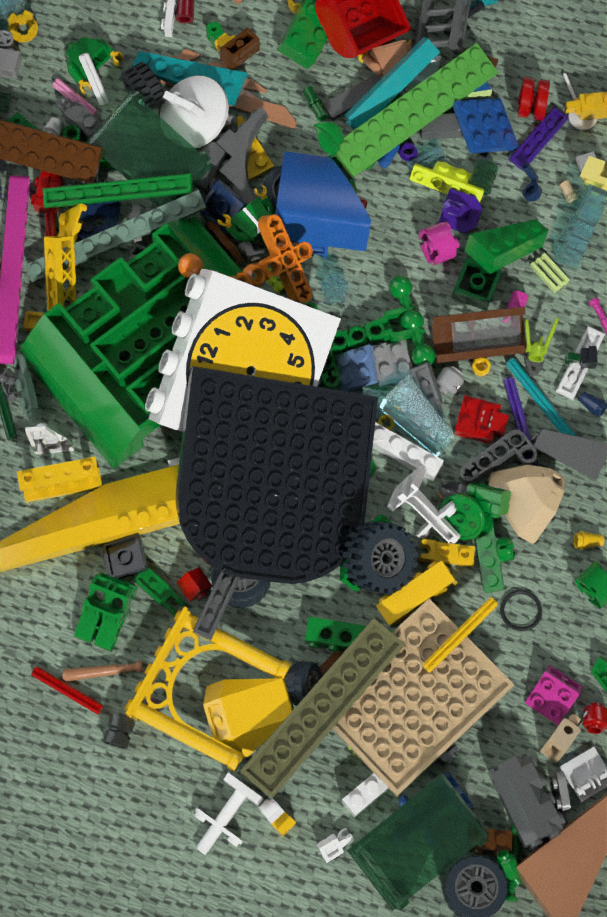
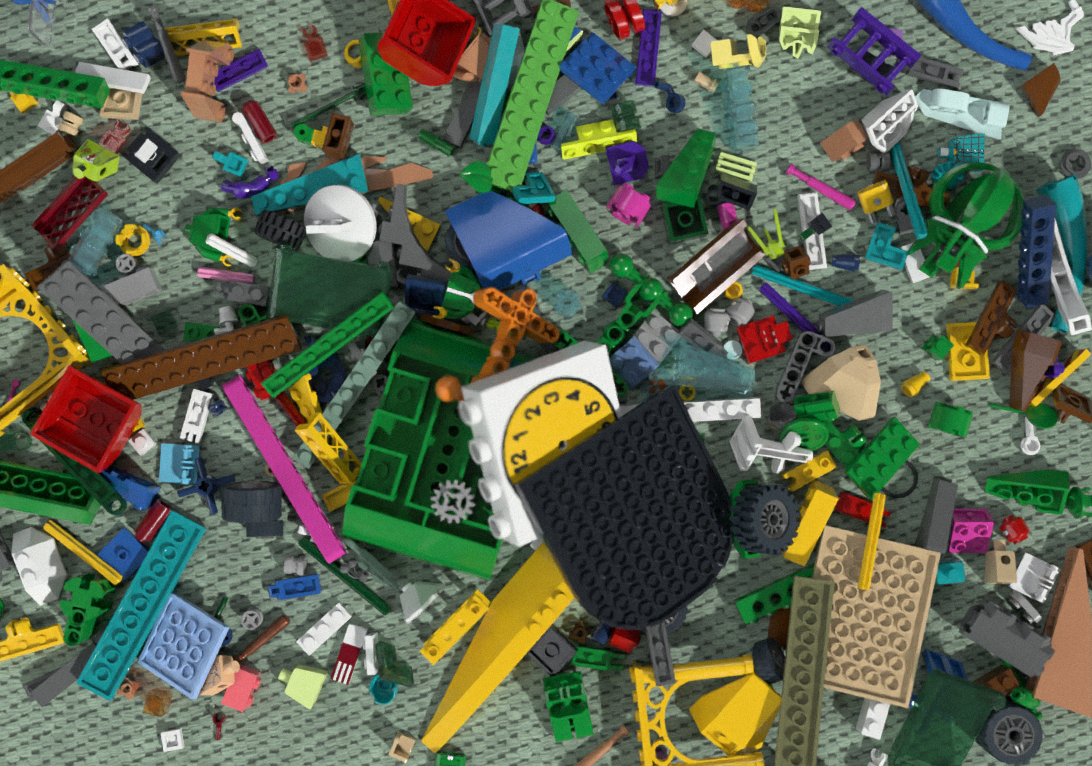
camera: 30 degrees left, 15 degrees up
(44, 35) = (157, 234): none -> dark azure hand
(123, 363) = (458, 509): none -> light grey gear
(138, 43) = (245, 189): none -> dark purple arm
(142, 19) = (233, 163): none -> teal plate
(159, 564) = (580, 637): none -> dark brown plate
(178, 569) = (602, 632): none -> dark blue cone
(280, 28) = (357, 91): none -> dark green piece
(371, 184) = (535, 191): none -> teal plate
(378, 308) = (614, 294): none -> dark blue tile
(382, 240) = (579, 232): none -> green wedge
(450, 415) = (734, 349): none -> light aqua piece
(465, 607) = (856, 507): none -> red hinge
(475, 385) = (740, 311): none -> light grey head
(510, 712) = (950, 571): none -> teal torso
(517, 579) = (882, 458): none -> green plate
(533, 287) = (733, 191): none -> black hinge
(536, 658) = (937, 516): none -> dark grey slope
(548, 375) = (798, 265): none -> reddish brown brick

